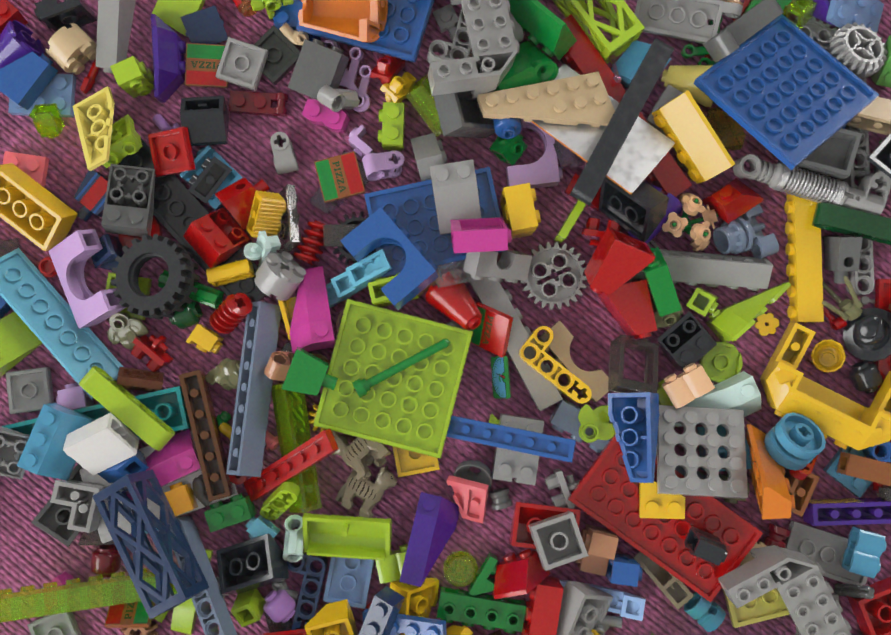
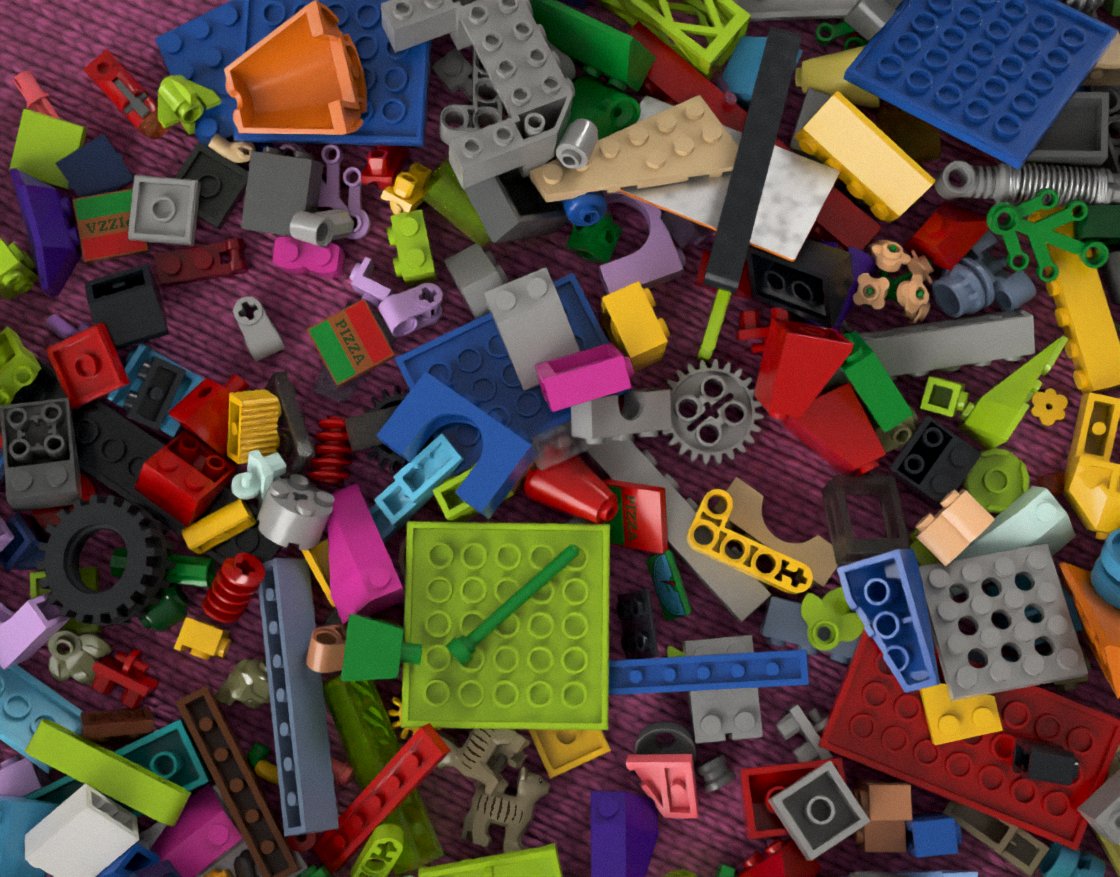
camera: 15 degrees left, 5 degrees down
(475, 397) = (638, 626): none -> black hinge
(512, 84) = (577, 144): none -> light grey brick
(756, 371) = (1053, 482): none -> clear red hinge
(792, 214) = (1042, 232): none -> green plant

